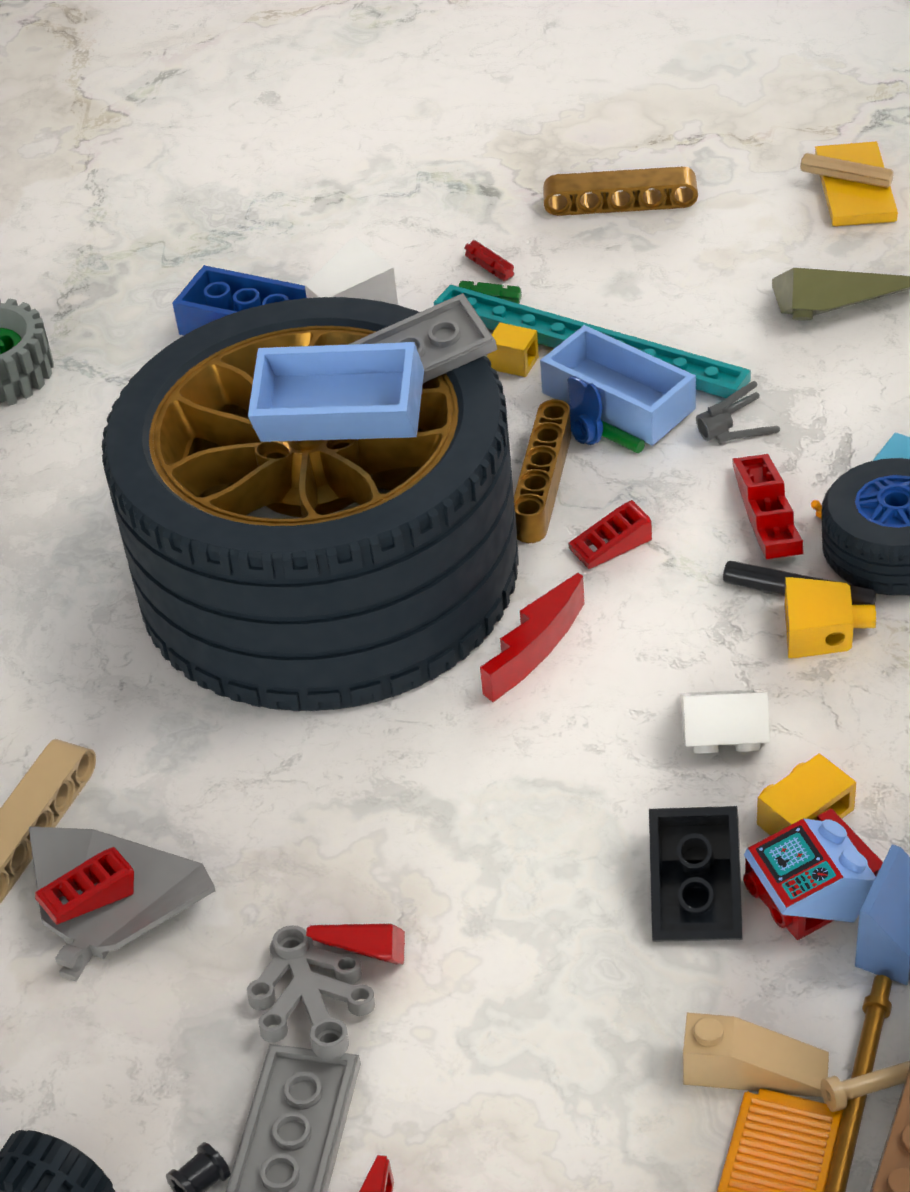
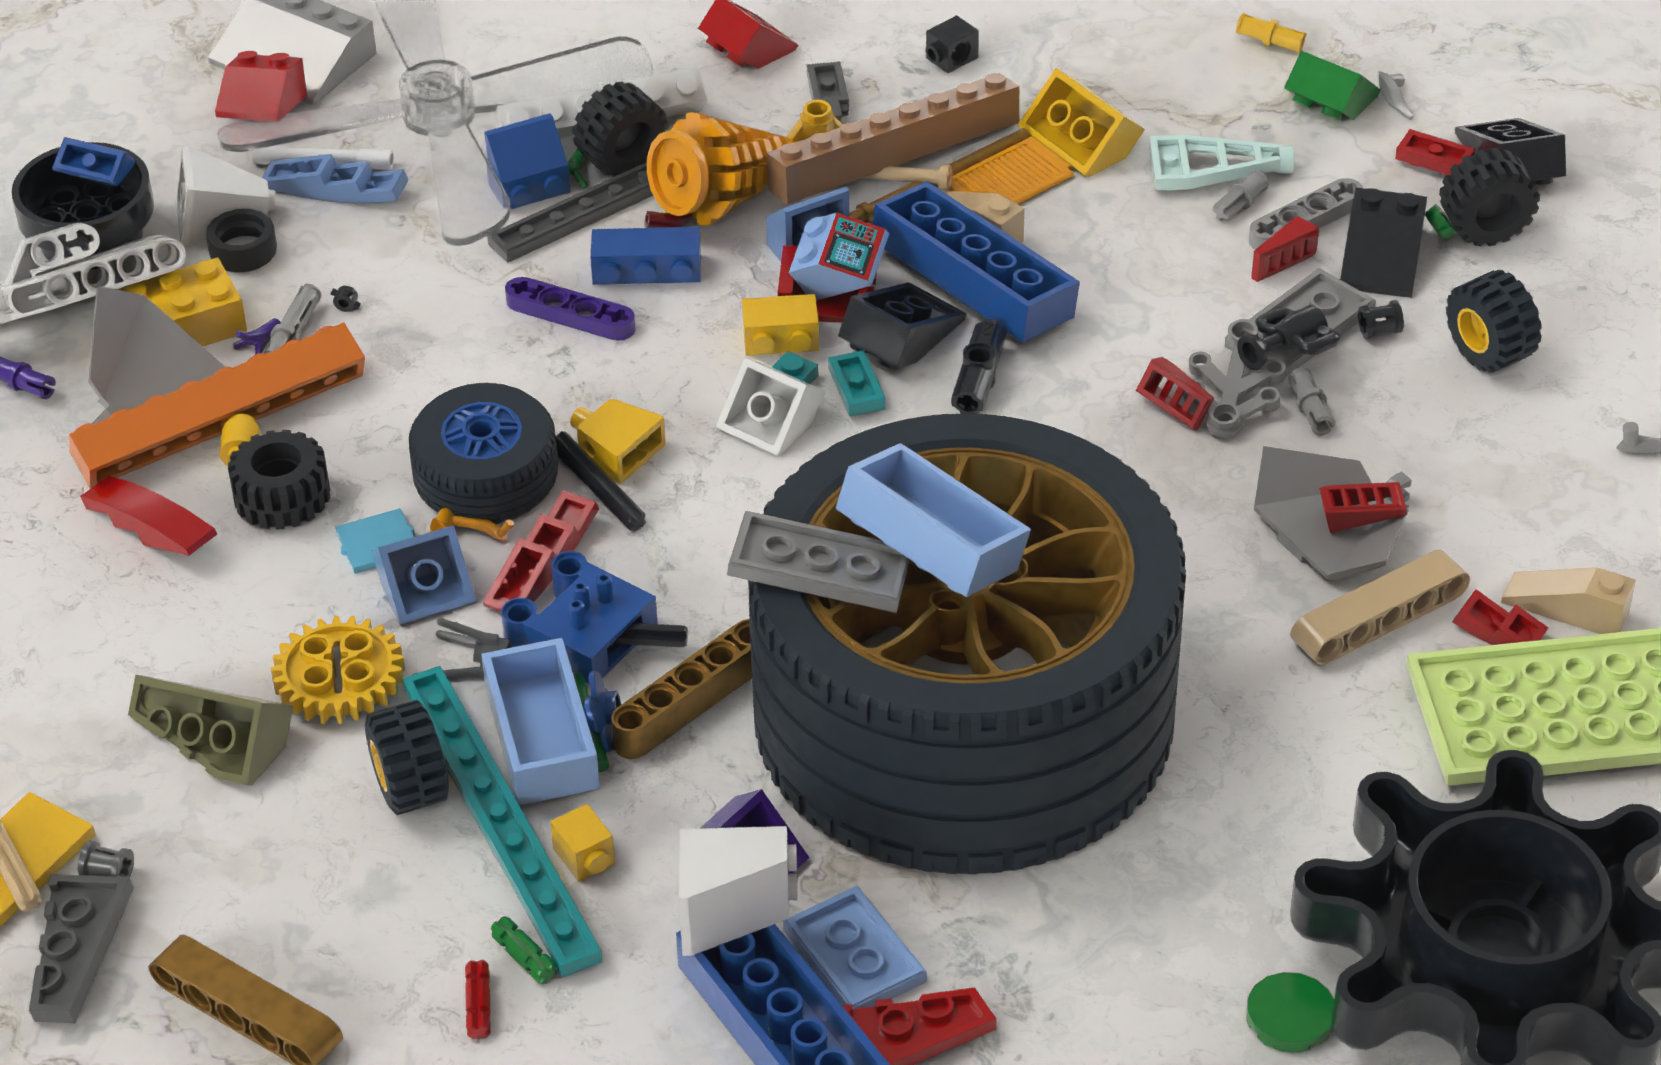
camera: 150 degrees left, 0 degrees up
(217, 1023) = (1311, 401): none -> light grey pin
(272, 1061) = (1296, 330): none -> black piece
(576, 866) = (979, 366): none -> black piece
(627, 519) = (681, 601): red slope -> none
(667, 473) = (593, 615): none -> blue piece
(671, 305) = (407, 757): none -> black wheel
(673, 784) = (856, 383): none -> teal plate
(682, 963) = (976, 261): none -> blue brick
(748, 774) = (797, 367): none -> teal plate
(759, 172) = (76, 937): none -> dark grey wing
(795, 204) = (104, 861): none -> dark grey bush
(805, 359) = (307, 669): none -> yellow gear
(835, 440) = (424, 575): none -> medium blue slope

